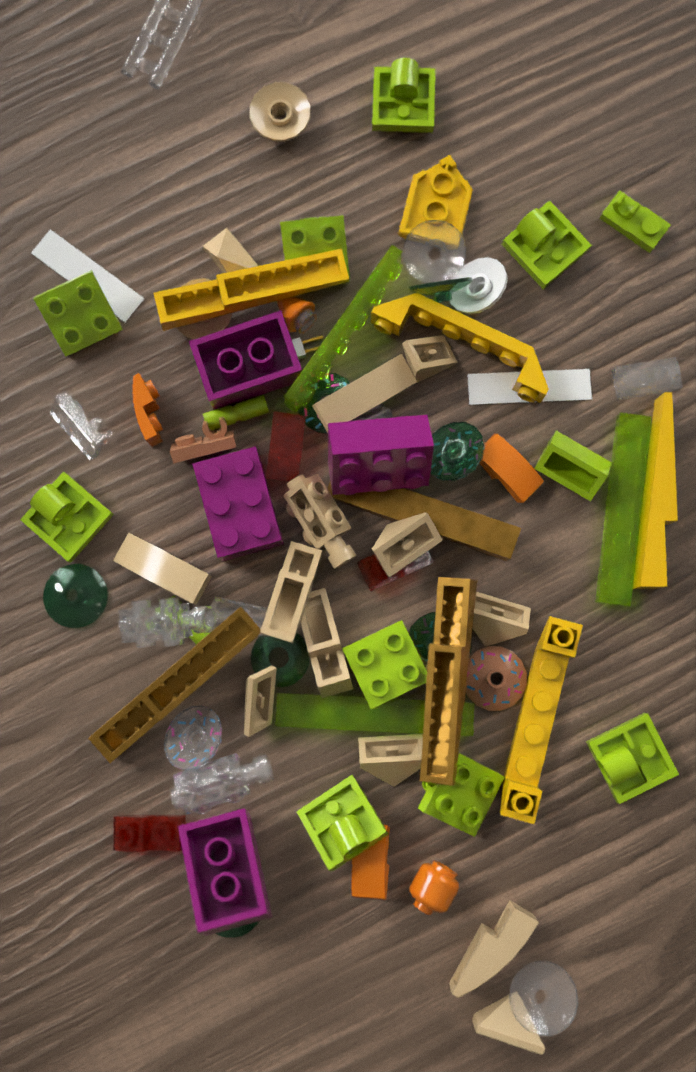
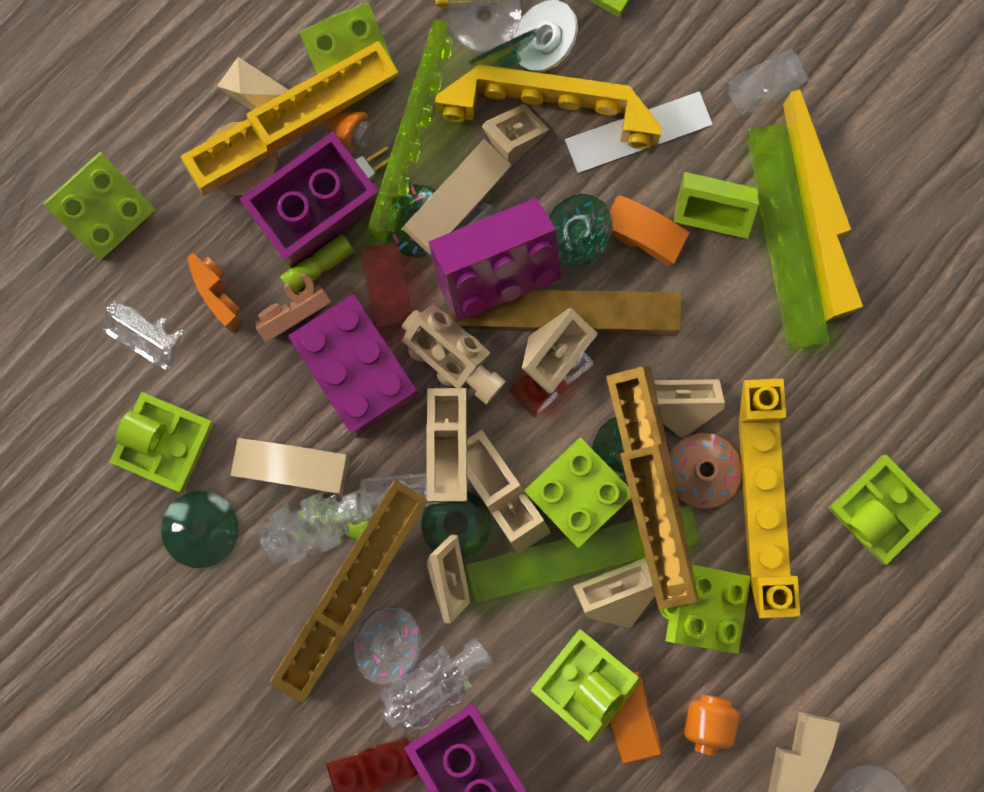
camera: 20 degrees left, 0 degrees up
(72, 263) = (74, 152): white sticker -> none

